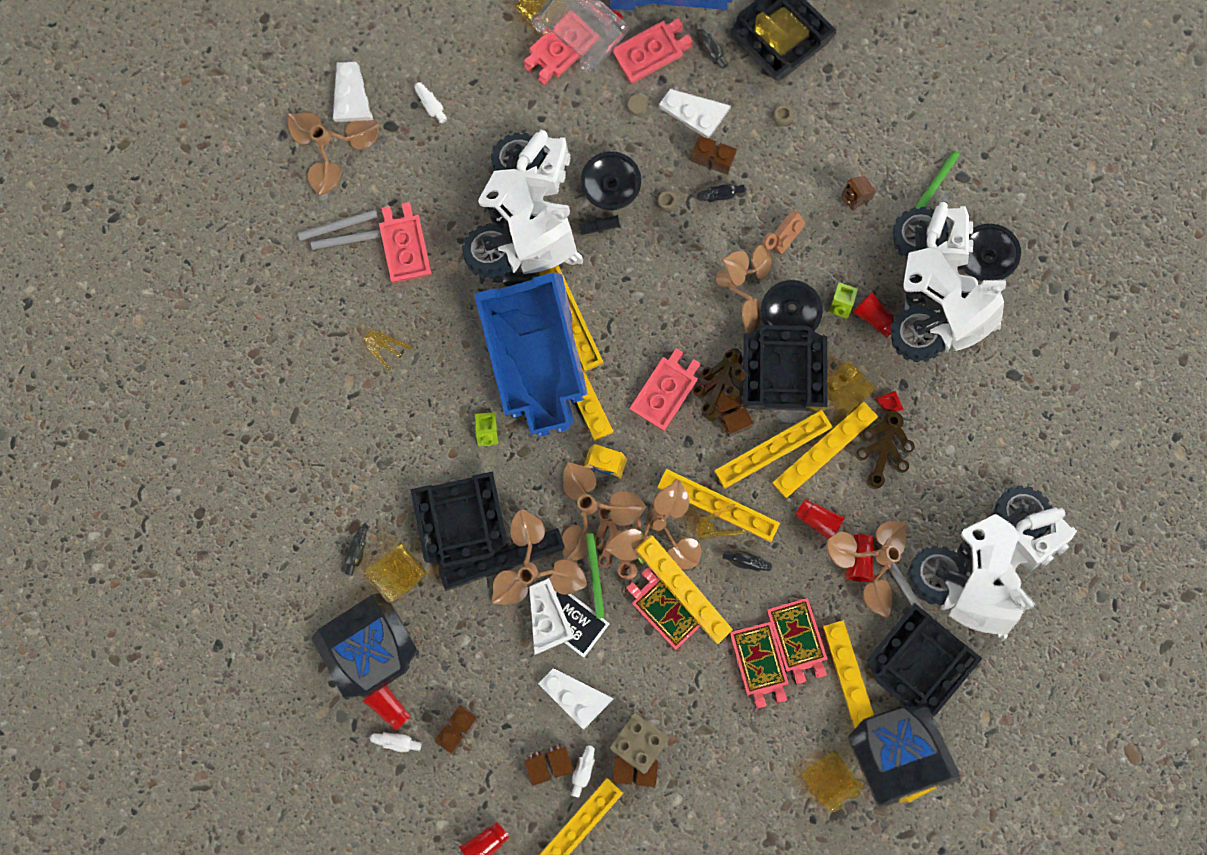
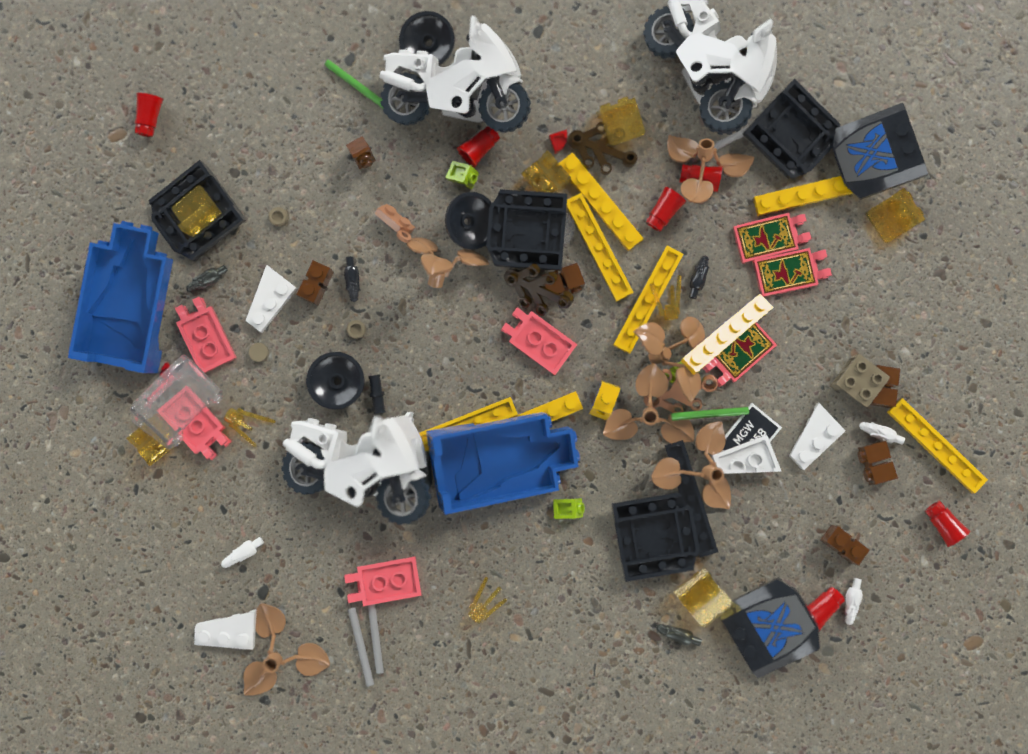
camera: 85 degrees left, 5 degrees up
(566, 87) = (236, 418): none -> clear yellow plant
(916, 467) = (621, 120): none -> clear yellow bracket

